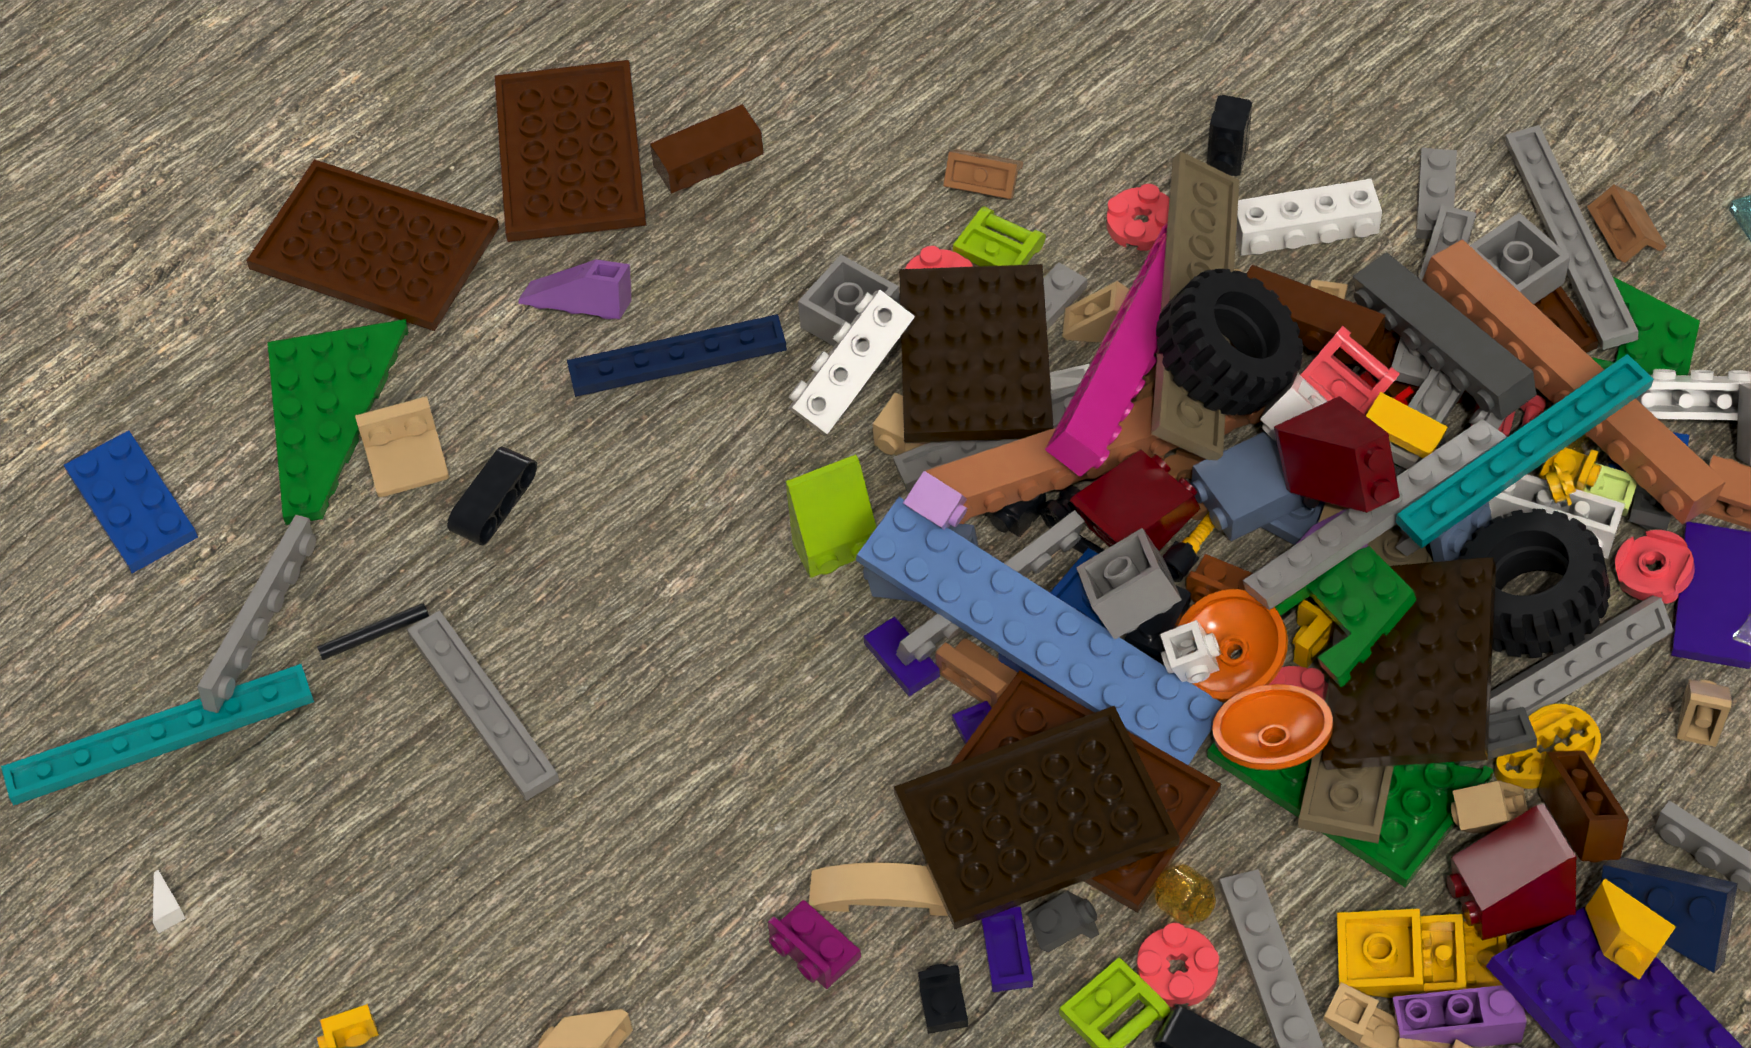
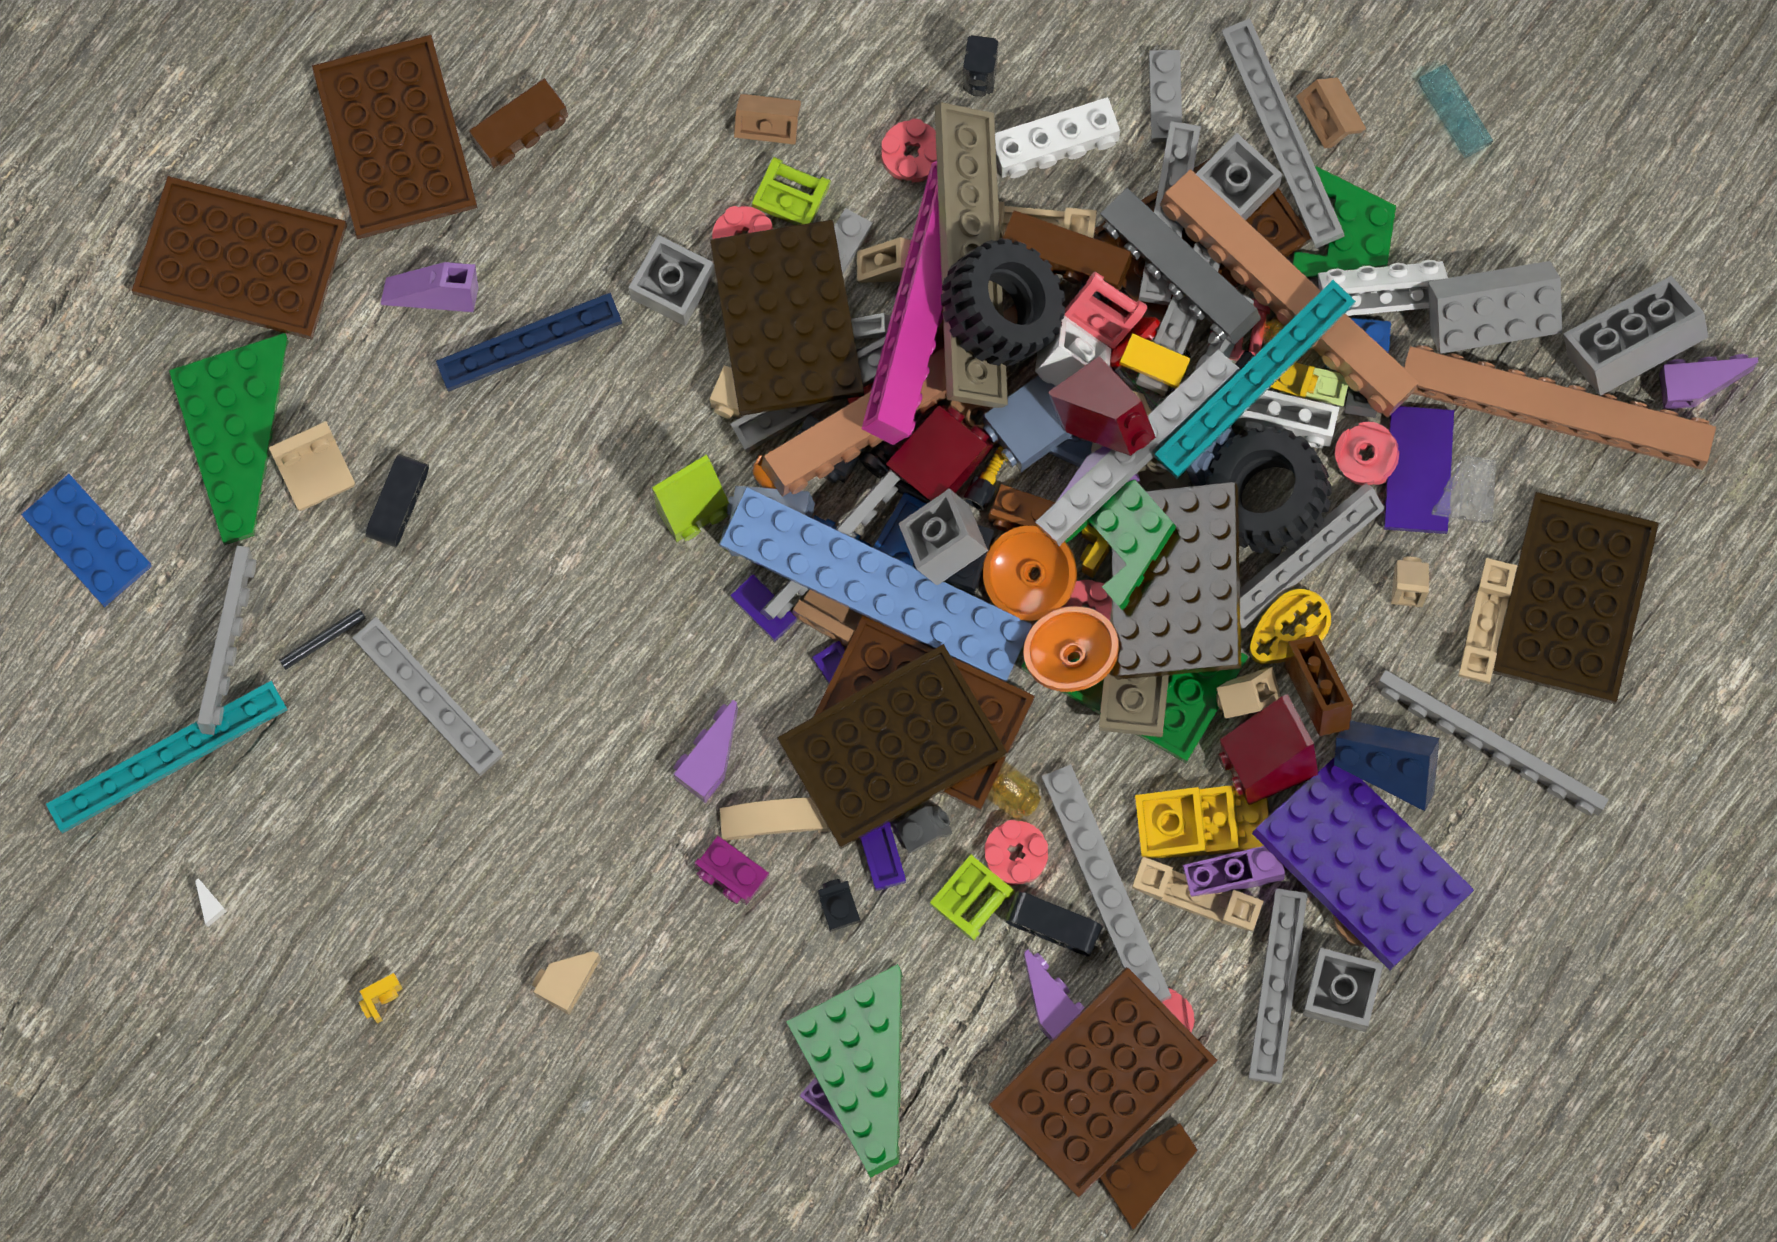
camera: 10 degrees left, 20 degrees up
(804, 814) = (708, 762): none -> medium lavender slope
(850, 362) = (682, 344): white brick -> none
(936, 501) = (778, 490): lavender brick -> none
(1190, 652) = (989, 589): white brick -> none
(1509, 734) = (1257, 625): dark grey plate -> none
(1560, 485) = (1285, 401): yellow plate -> none
(1626, 928) = (1357, 788): yellow slope -> none

